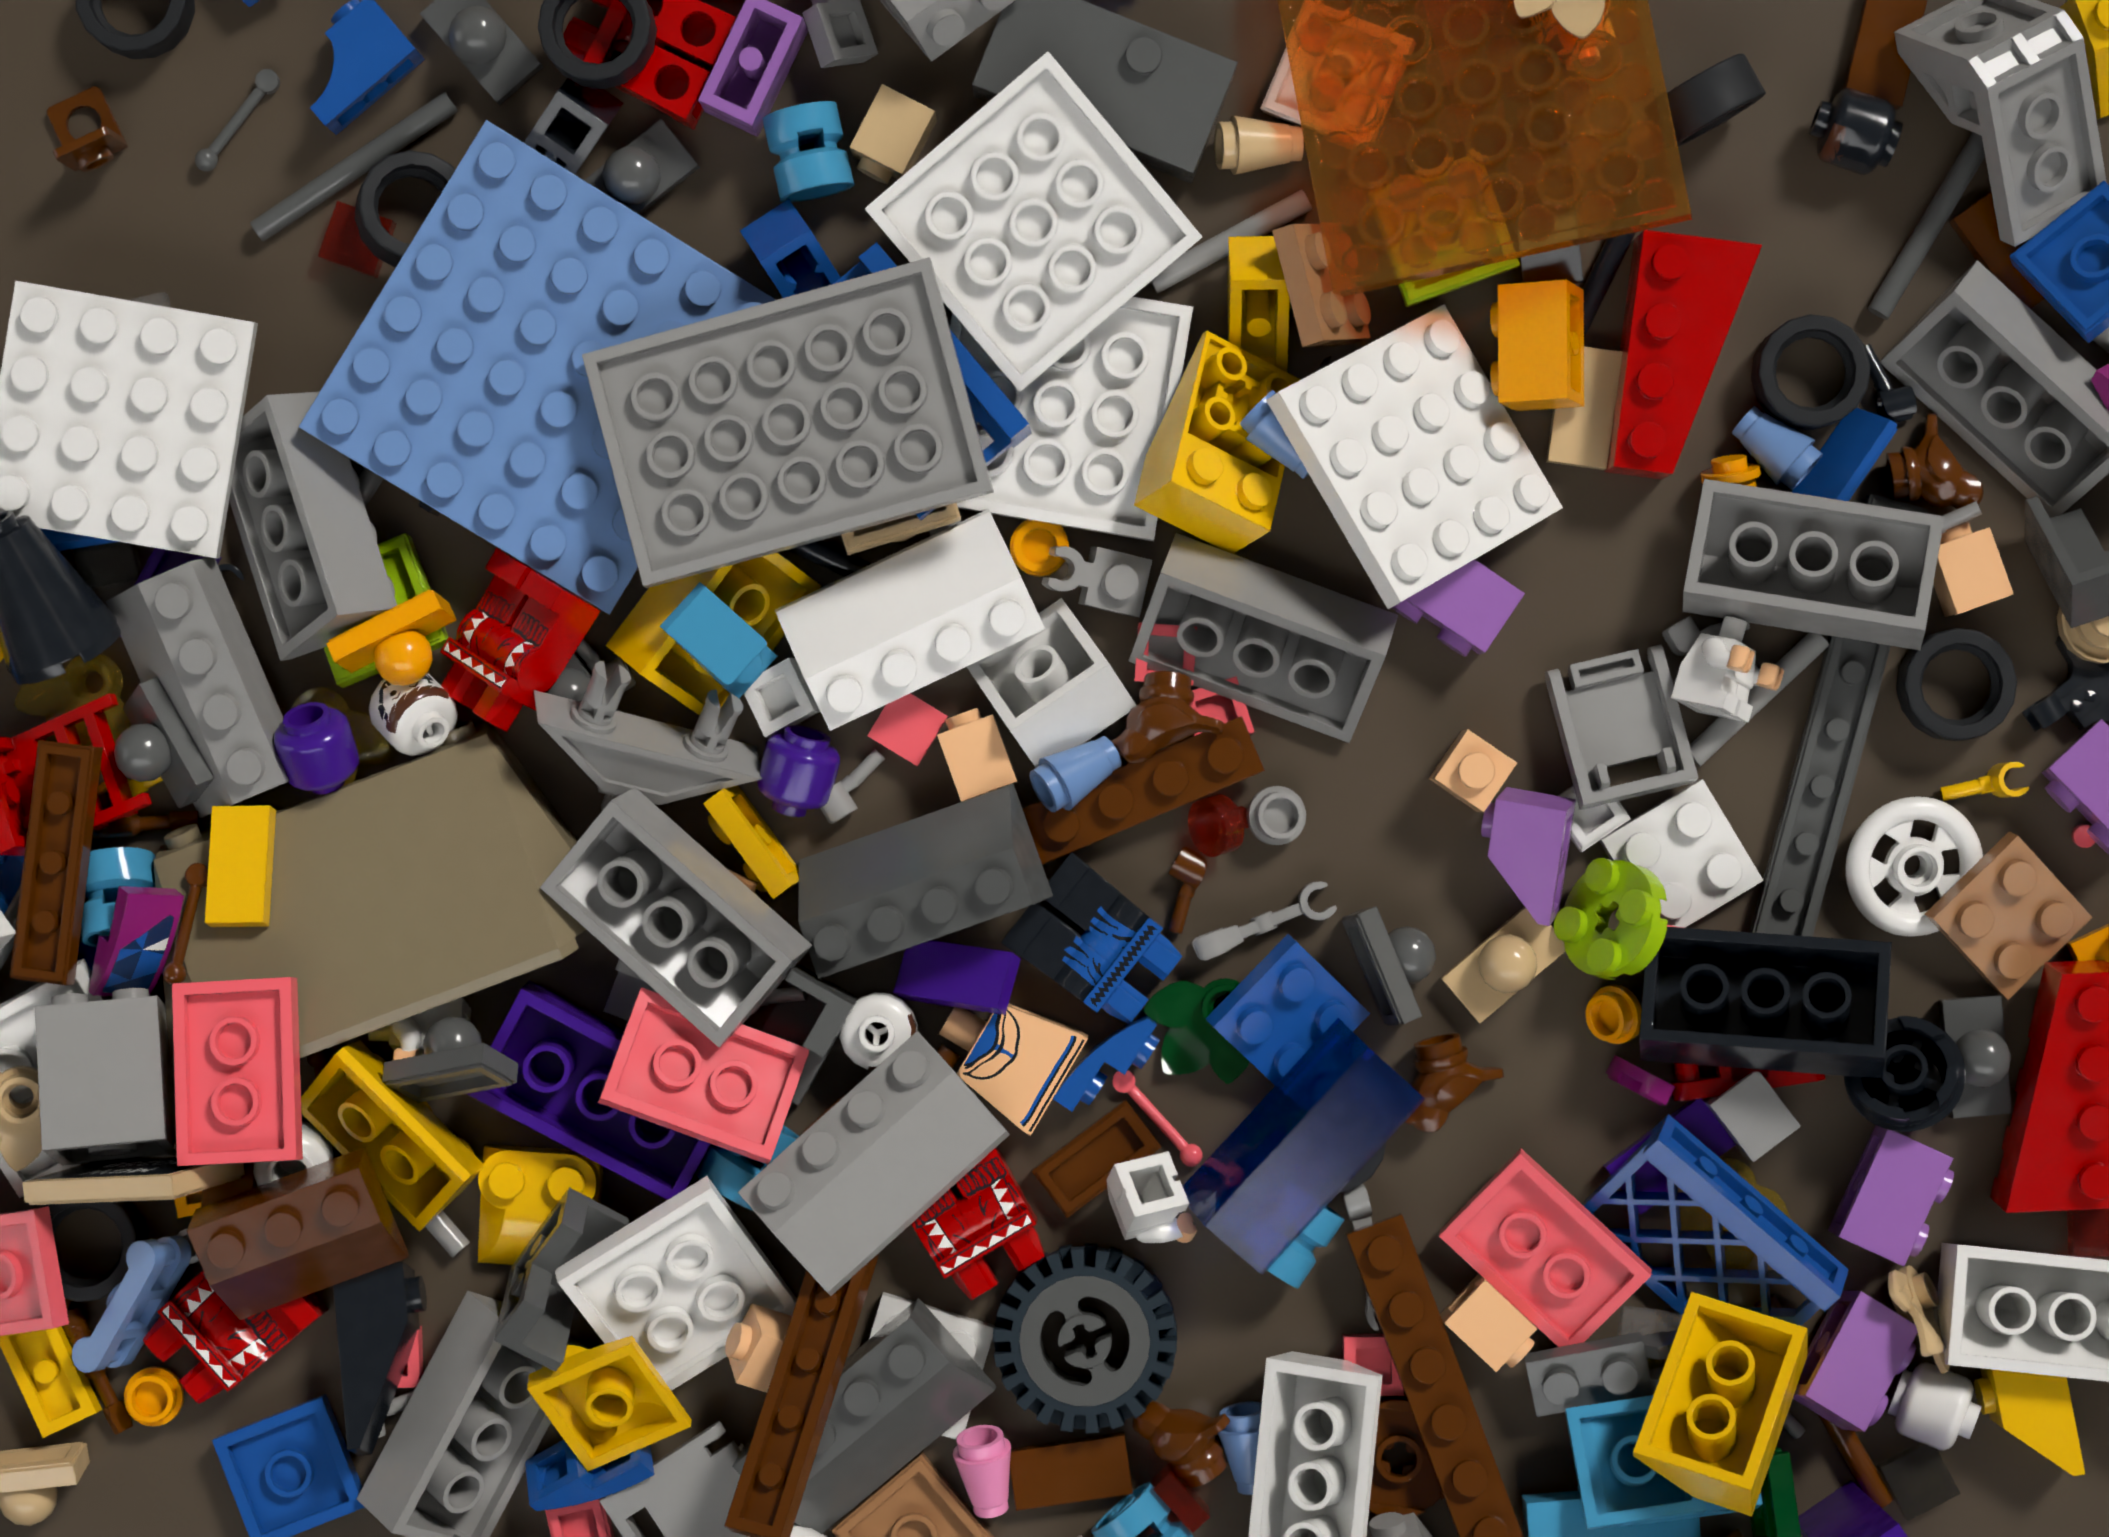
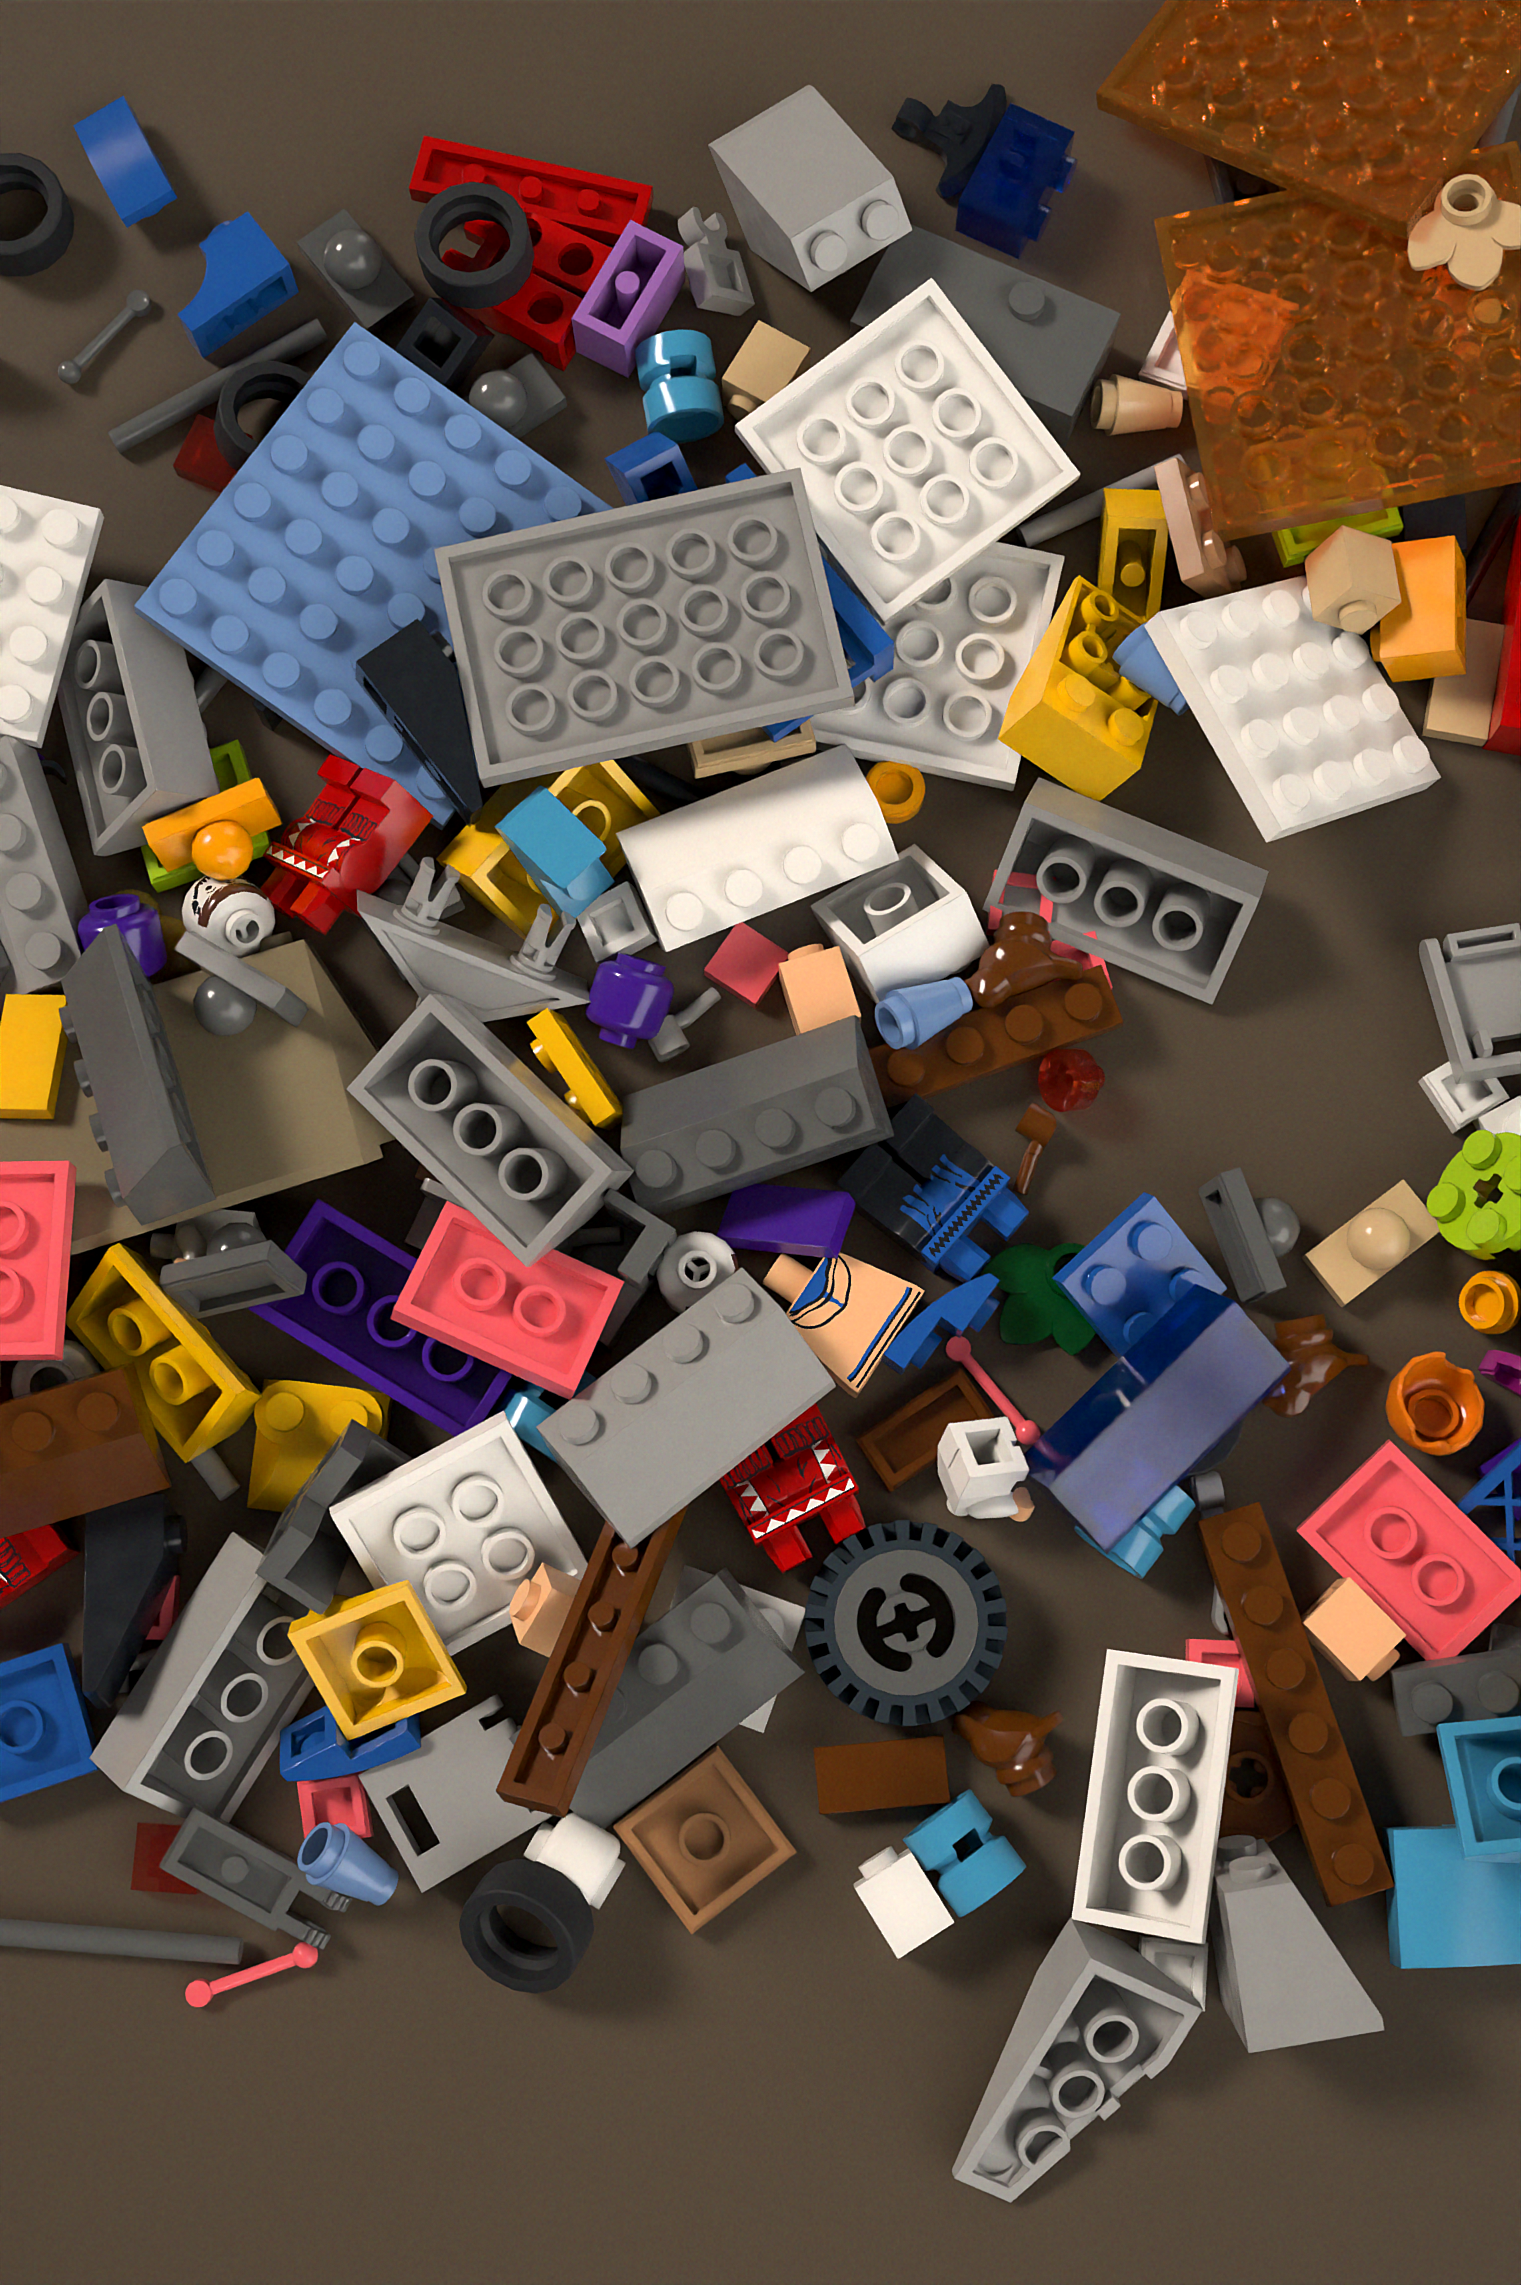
camera: 10 degrees right, 10 degrees down
(343, 897) = (133, 1082): none -> dark grey slope
(428, 795) = (230, 997): none -> dark grey tile
(584, 508) = (421, 698): none -> black slope
(985, 1468) = (787, 1764): bright pink cone -> none
(1108, 579) = (963, 823): light grey plate -> none
(1180, 1498) = (1004, 1809): clear red tile -> none
(1224, 939) = (1071, 1201): light grey piece -> none
(1241, 1442) = (1073, 1753): medium blue cone -> none
(1276, 815) = (1132, 1075): light grey plate -> none
(1466, 606) = (1331, 864): medium lavender brick -> none
(1470, 327) = (1352, 580): none -> tan brick
(1473, 770) = (1344, 1035): light nougat brick -> none
(1531, 846) = (1404, 1116): medium lavender slope -> none
(1563, 1115) = (1435, 1405): none -> orange hair

